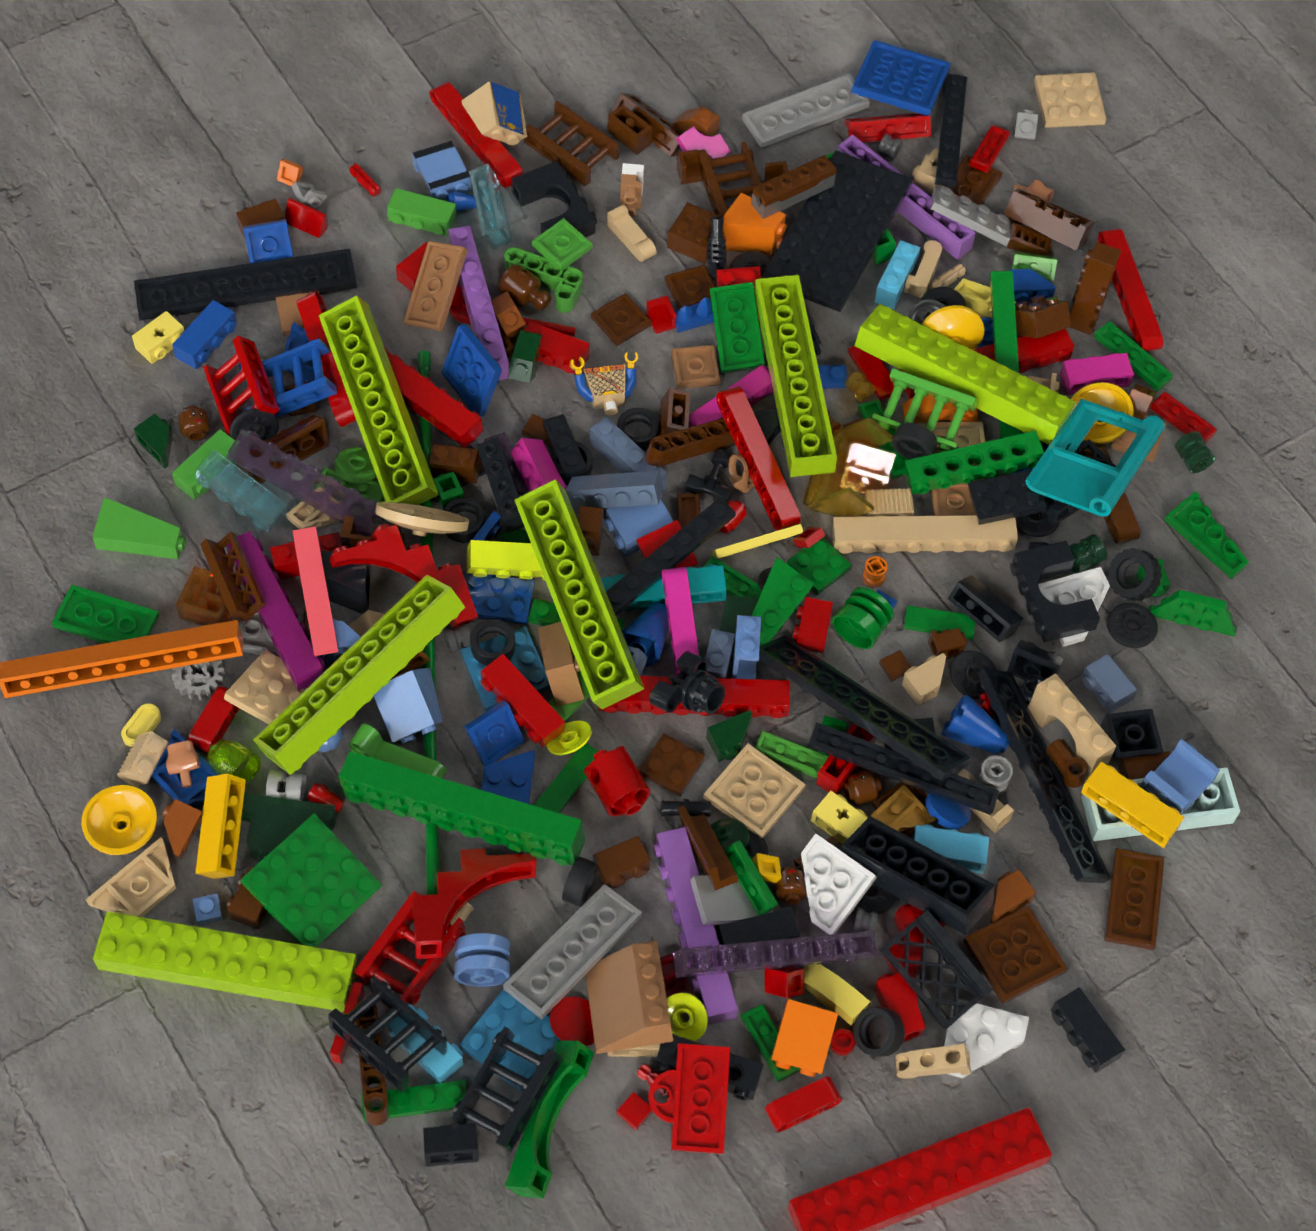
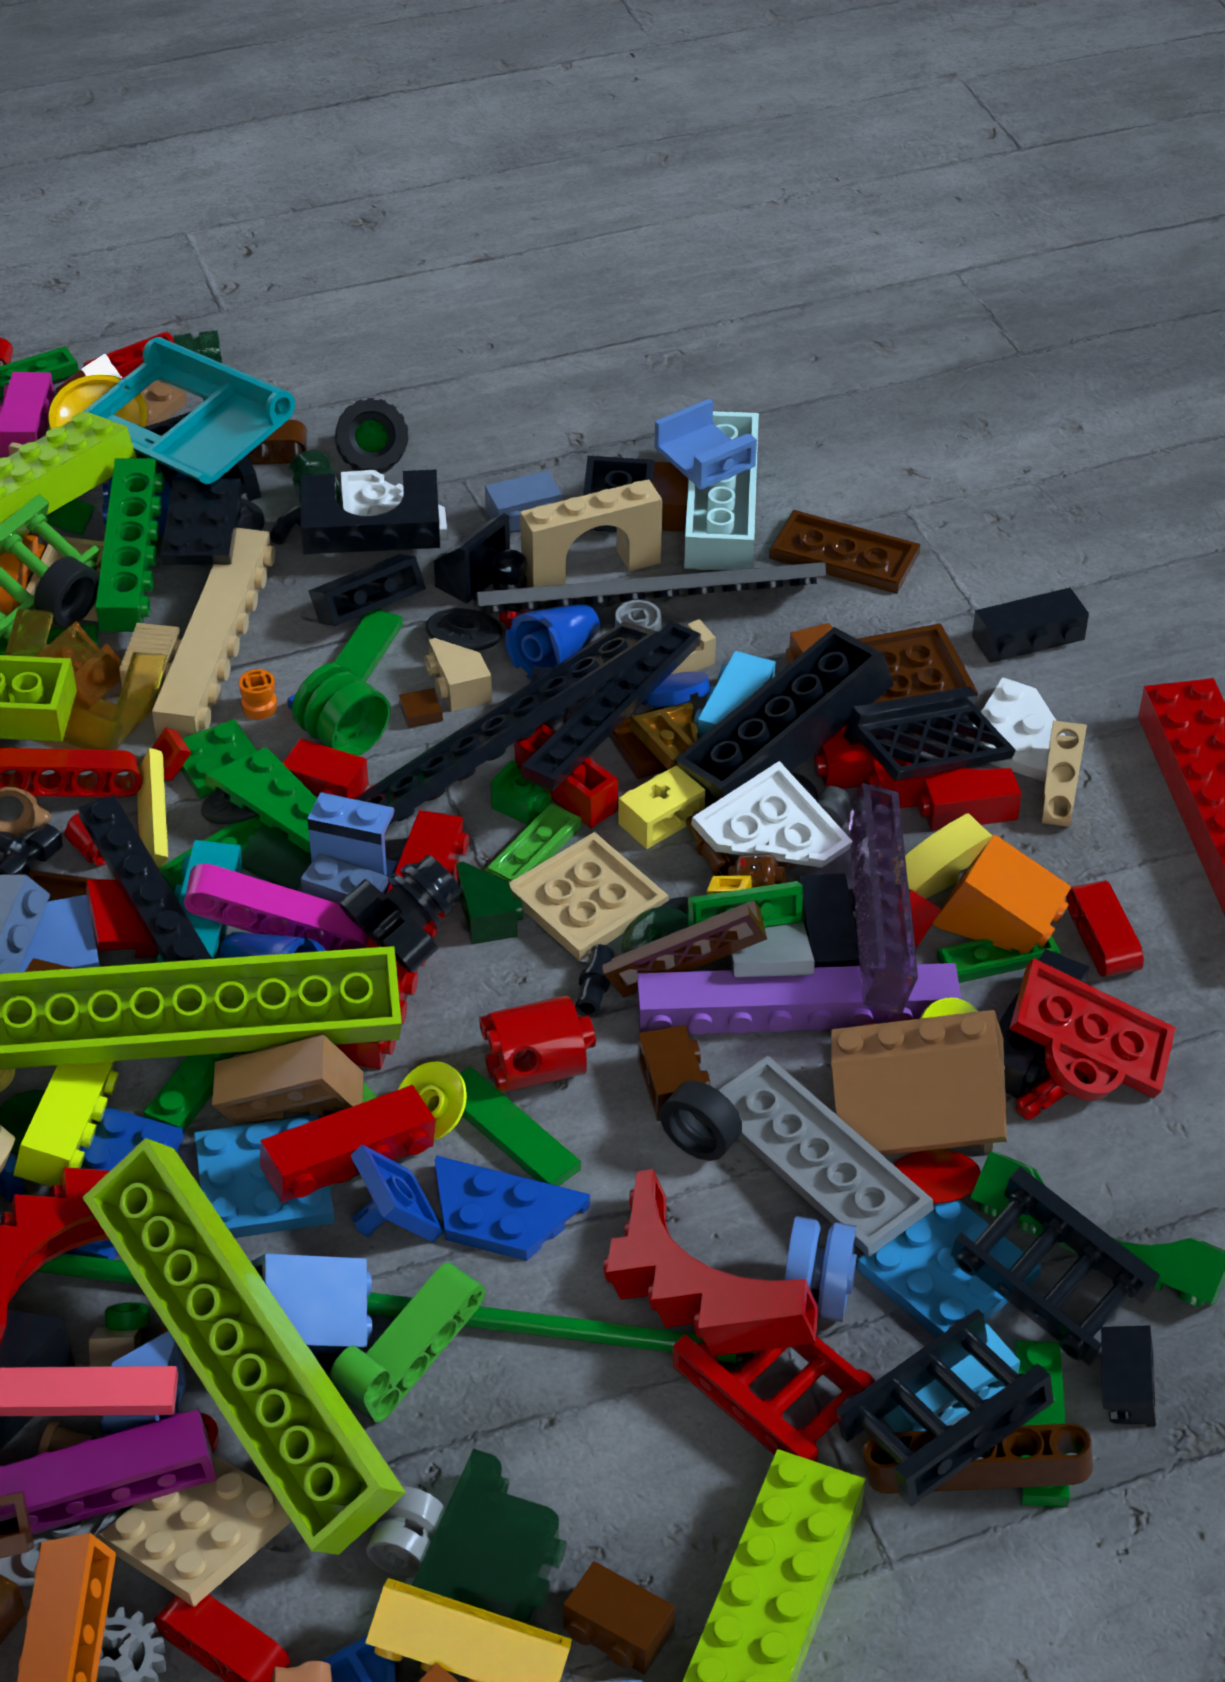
camera: 75 degrees left, 15 degrees down
(228, 756) = (327, 1614): clear neon green helmet -> none
(311, 883) = (617, 1510): green plate -> none
(322, 794) = (441, 1474): red cone -> none
(340, 1046) = (932, 1513): red tile -> none
(462, 809) = (537, 1250): green brick -> none
(491, 626) = (219, 1142): black tyre -> none
(634, 1111) = (1090, 1130): red tile -> none
(672, 764) = (508, 981): reddish brown plate -> none
(861, 1032) = (1027, 795): black tyre -> none
(862, 788) = (622, 763): reddish brown head -> none
(947, 642) = (407, 644): reddish brown brick -> none
(952, 501) = (176, 591): medium nougat plate -> none
(1066, 762) = (649, 556): reddish brown piece -> none
(1127, 637) = (457, 465): black wheel -> none
(1132, 804) = (732, 492): yellow brick -> none
(1196, 611) = (446, 398): green wing -> none
(1201, 530) = (330, 373): green wing -> none

